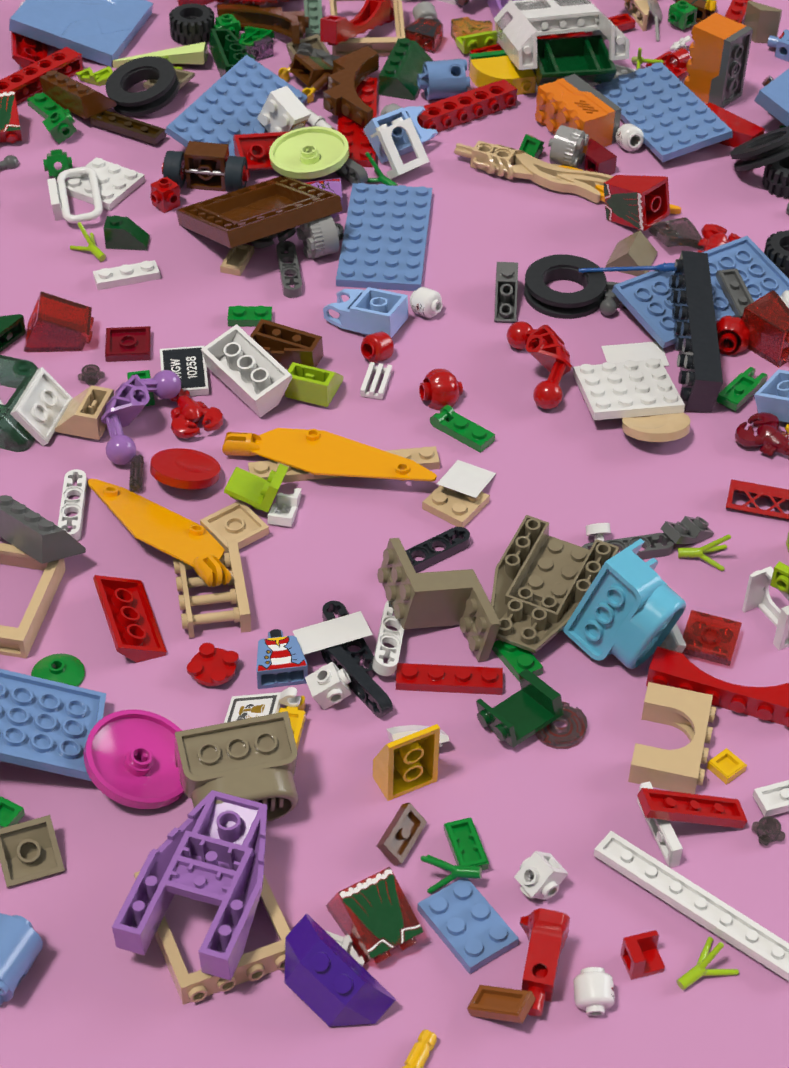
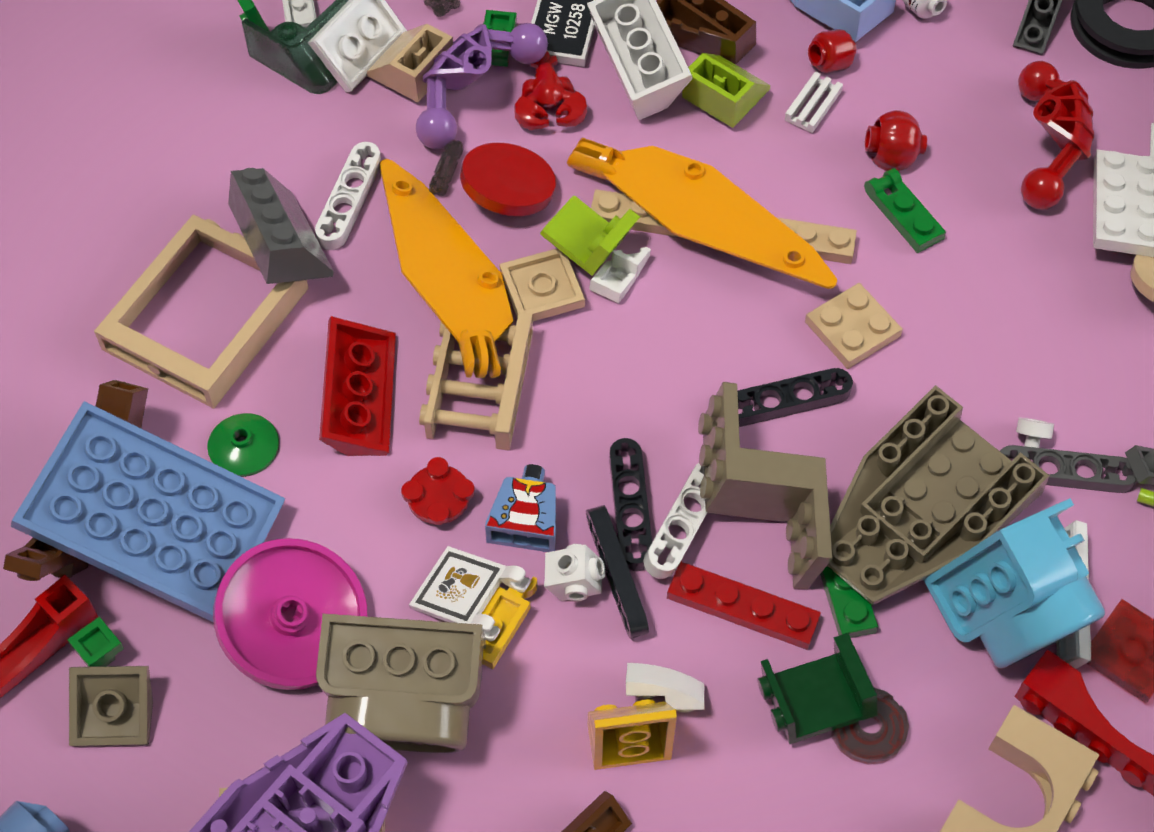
camera: 20 degrees right, 15 degrees up
(332, 632) = (607, 492): white sticker -> none
(466, 478) = (879, 294): white sticker -> none

